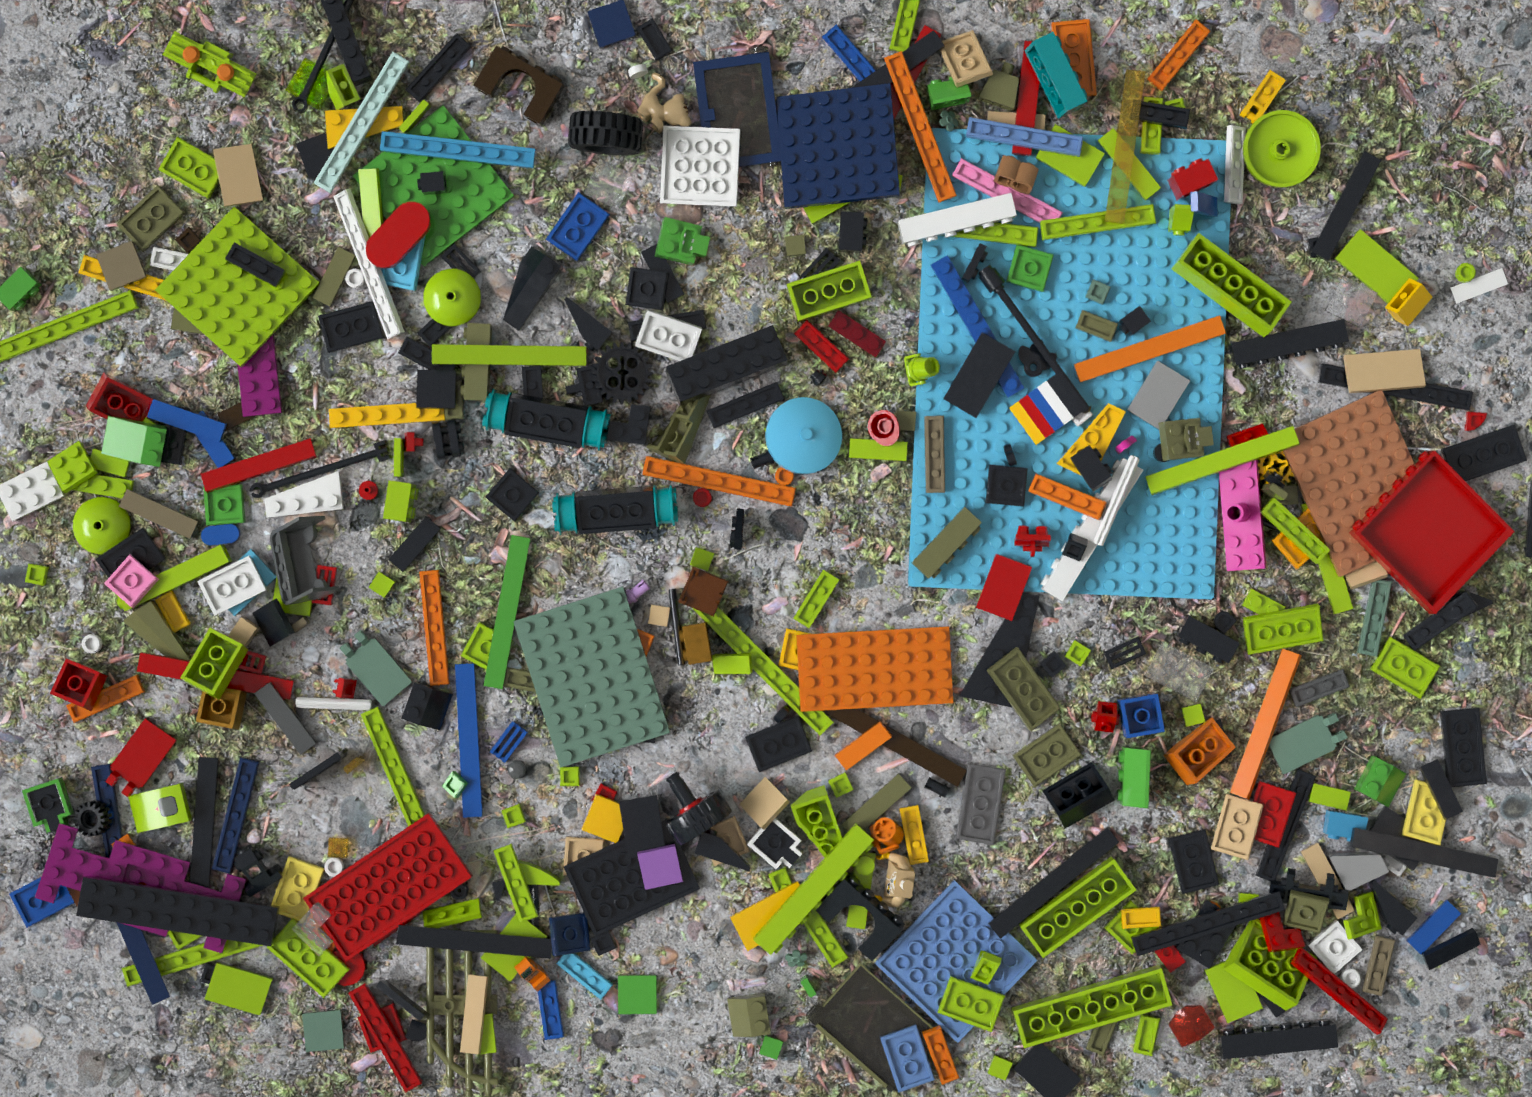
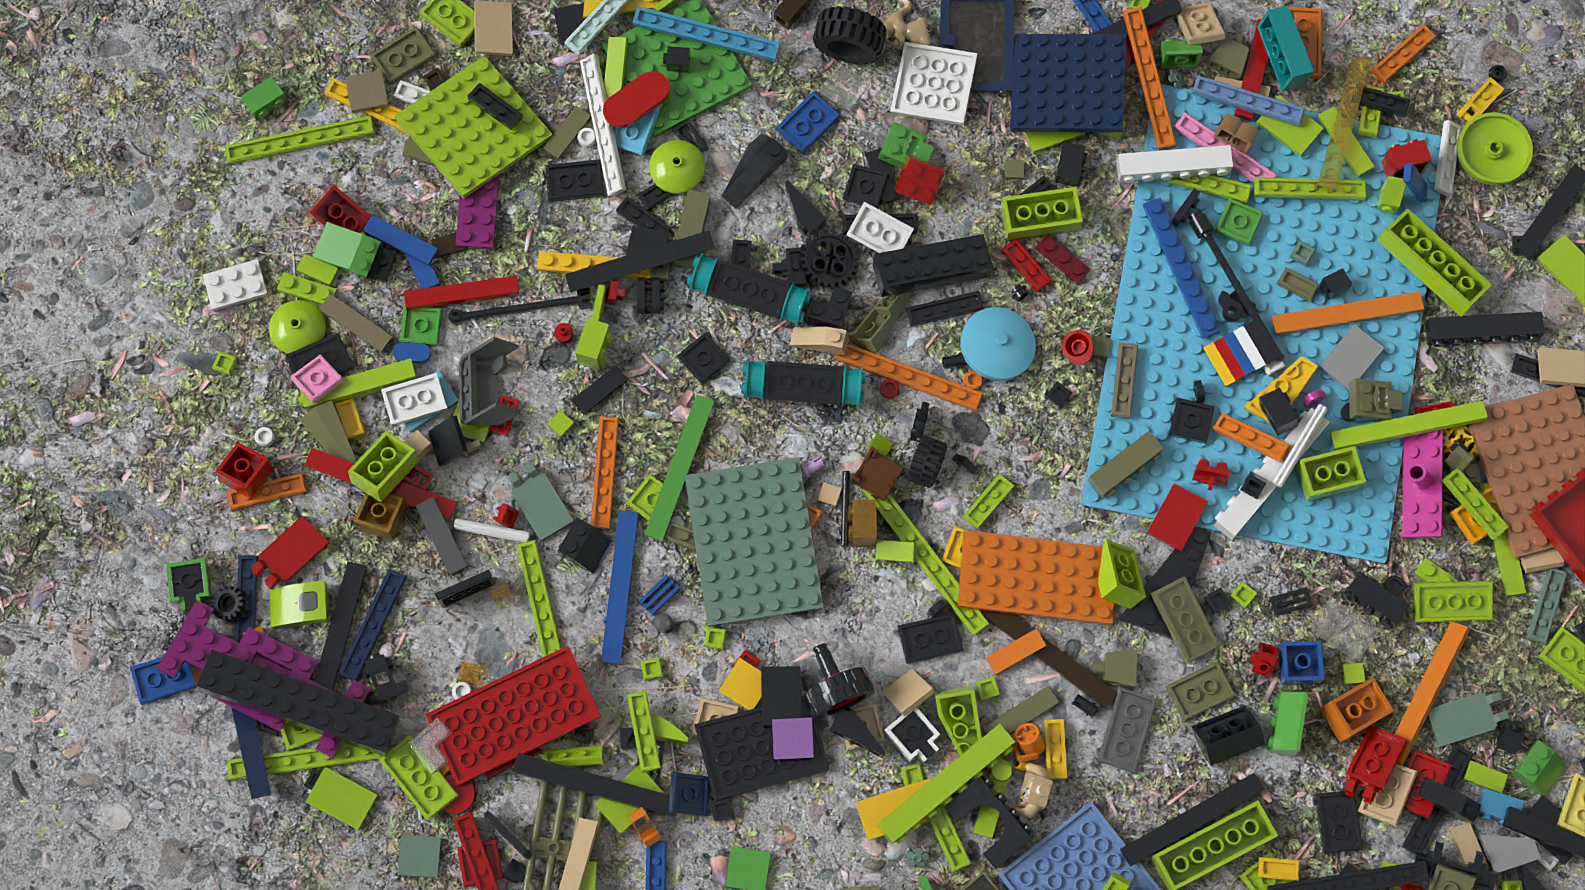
camera: 10 degrees right, 15 degrees down
(72, 467) = (281, 267): lime plate -> none
(297, 882) = (419, 700): light yellow tile -> none
(311, 497) = (515, 328): white wing -> none
(431, 408) = (640, 261): none -> black tile
(454, 784) = (598, 627): tile -> none
(509, 355) = (722, 224): lime tile -> none
(585, 974) = (697, 840): medium azure tile -> none
(625, 459) = (820, 339): none -> tan slope
(700, 276) = (919, 179): none -> red brick
(750, 572) = (927, 461): none -> black tyre
(788, 564) = (959, 459): none -> black tile
(871, 477) = (1058, 394): none -> black tile
(872, 450) = (1067, 370): lime tile -> none
(920, 368) = (1121, 297): lime piece -> none
(955, 656) = (1120, 575): none -> lime slope
(964, 746) = (1118, 668): none -> olive torso
(979, 375) = (1178, 310): black tile -> none
(1150, 522) = (1330, 473): none -> lime brick
(1221, 802) = (1374, 762): none -> red tile
(1277, 58) = (1498, 69): none -> black plate
(1296, 829) = (1449, 800): none -> black slope
(1319, 687) = (1484, 666): dark grey tile -> none
(1350, 756) = (1511, 736): none -> black brick

